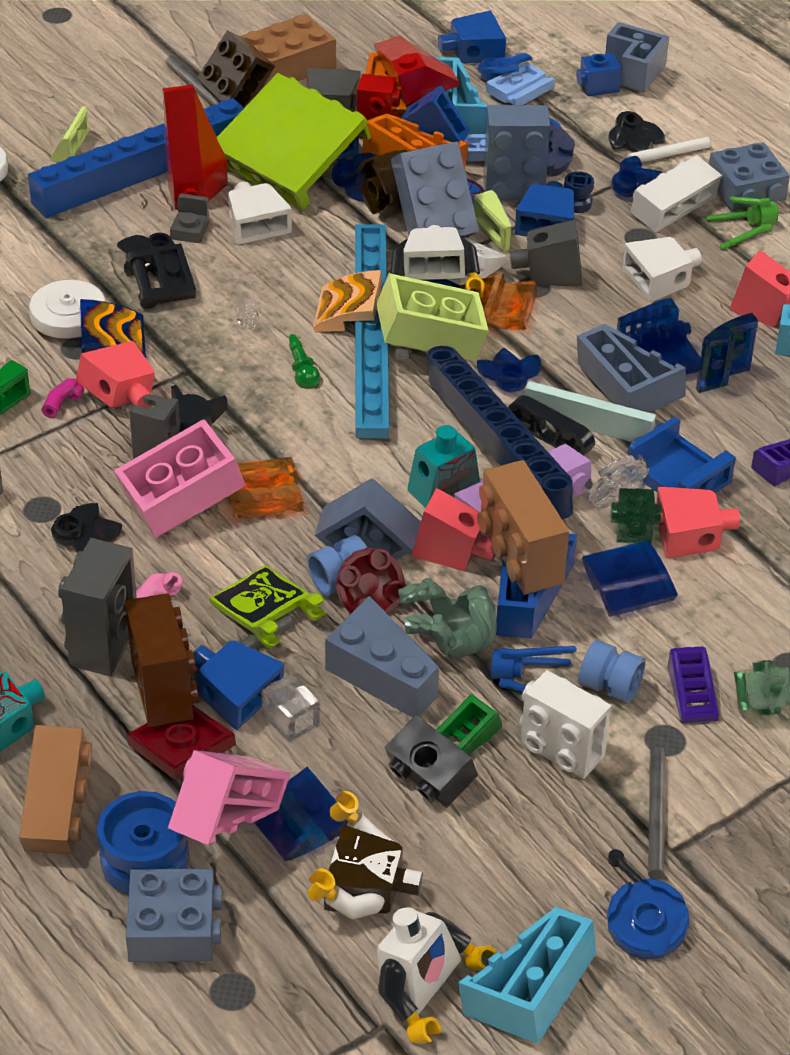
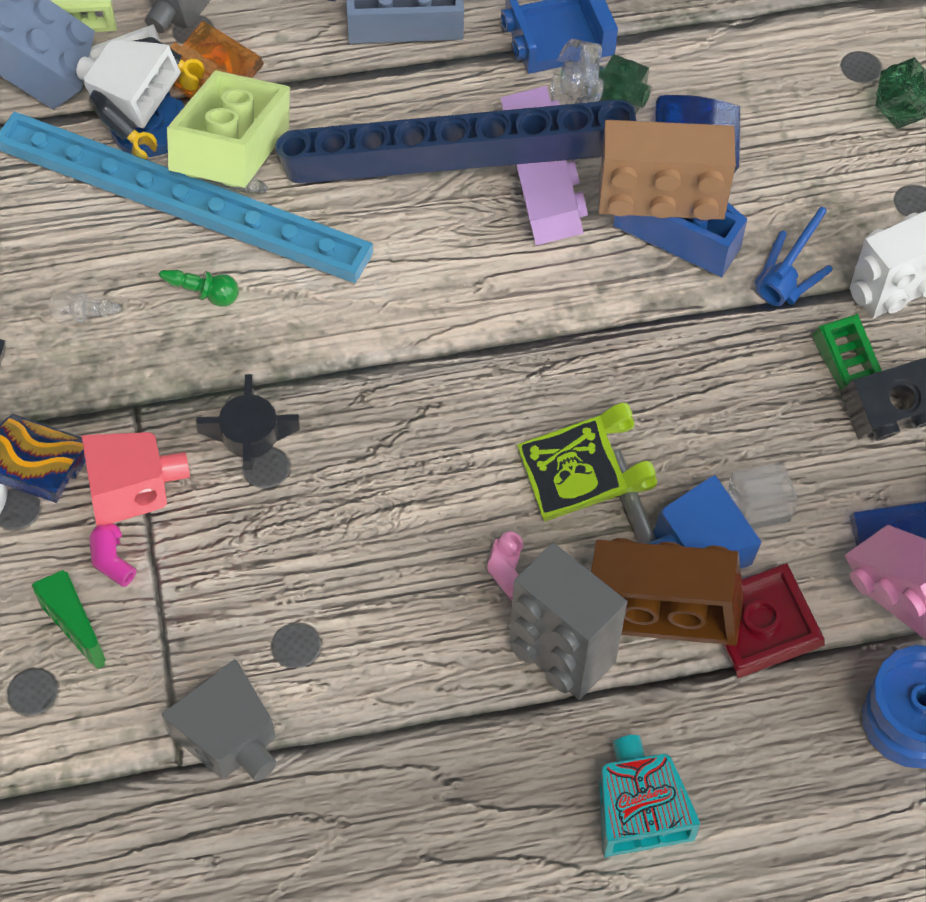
camera: 65 degrees left, 15 degrees up
(55, 790) = (808, 769): medium nougat wedge -> none
(81, 525) = (369, 602): black plate -> none
(153, 425) = (273, 469): dark grey hinge -> none
(180, 478) = (365, 470): bright pink brick -> none
(268, 490) = (391, 401): clear orange slope -> none
(326, 562) = (571, 370): medium blue wheel -> none
(348, 299) = (127, 199): slope -> none
(370, 574) = (618, 352): dark red dish -> none
(371, 515) = (522, 319): sand blue brick -> none
(382, 660) = (729, 384): sand blue wedge -> none
(443, 464) = (467, 205): teal torso -> none
(450, 533) = (576, 252): coral torso -> none
(459, 624) = (712, 290): sand green hair -> none
(508, 371) = (328, 103): clear blue plate -> none
(534, 417) = (466, 93): black beam -> none
(593, 413) = (443, 64): light aqua tile -> none
(613, 671) = (840, 191): medium blue wheel -> none
(692, 521) = (651, 42): coral torso -> none
(692, 663) = (842, 147): dark purple slope -> none

